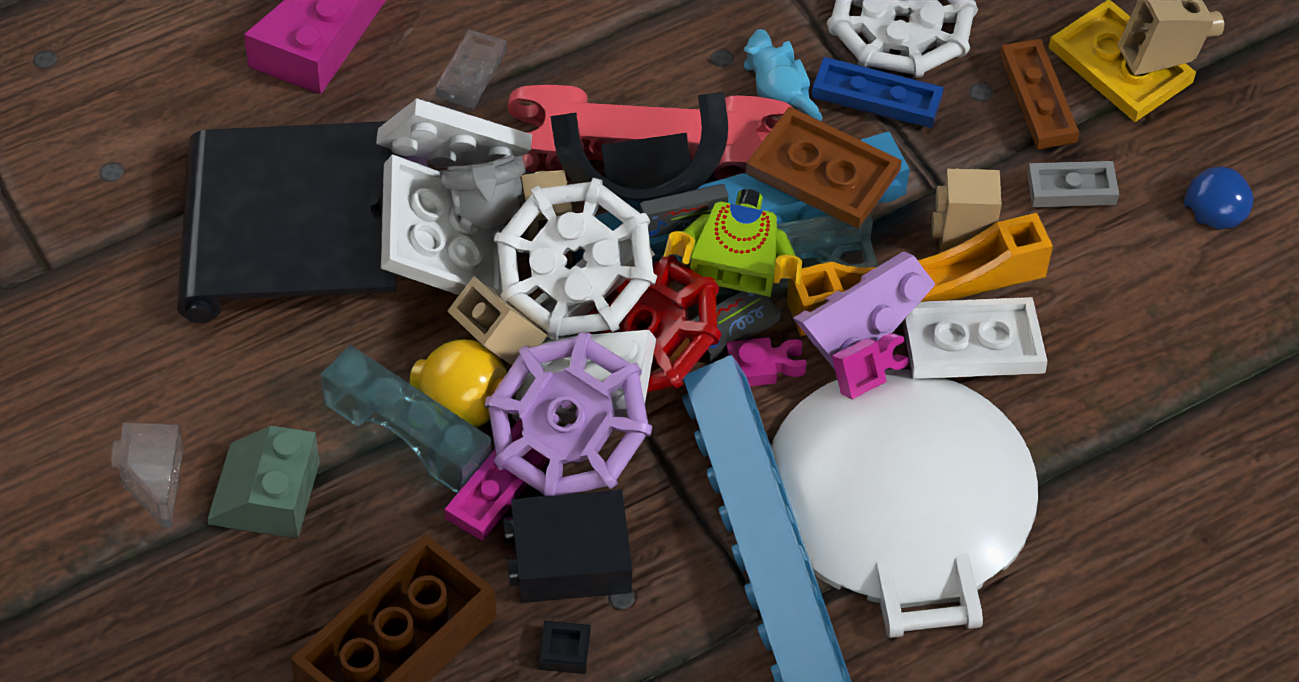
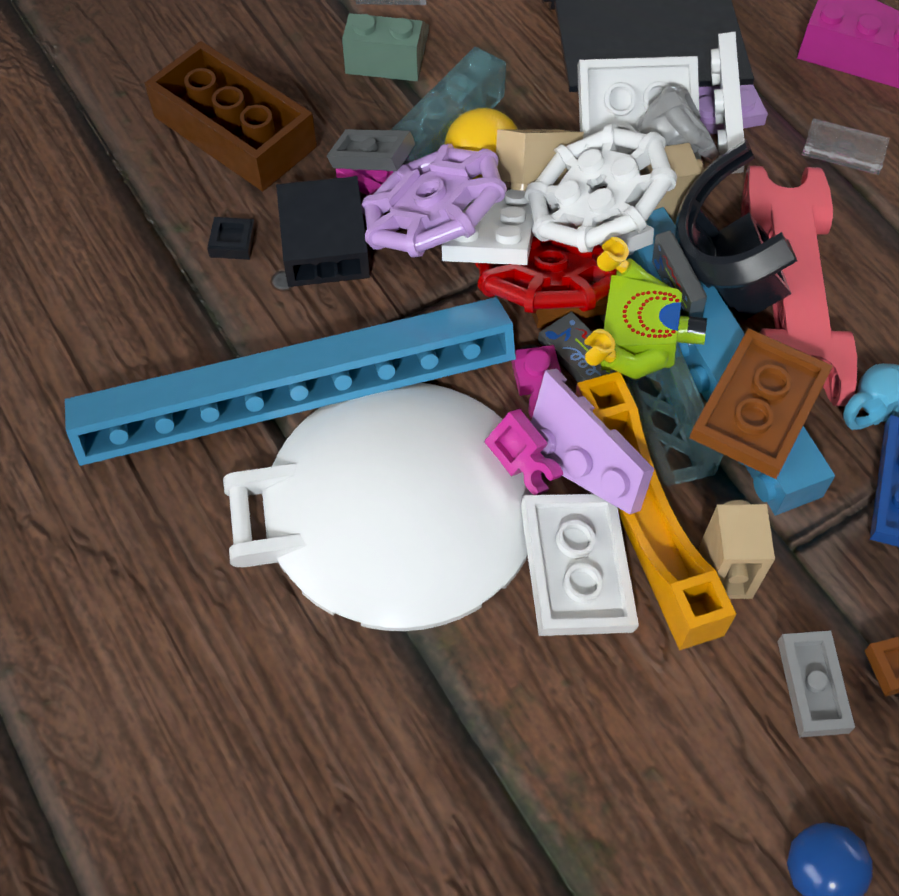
camera: 90 degrees right, 5 degrees up
(483, 478) = (371, 149): none -> dark grey plate

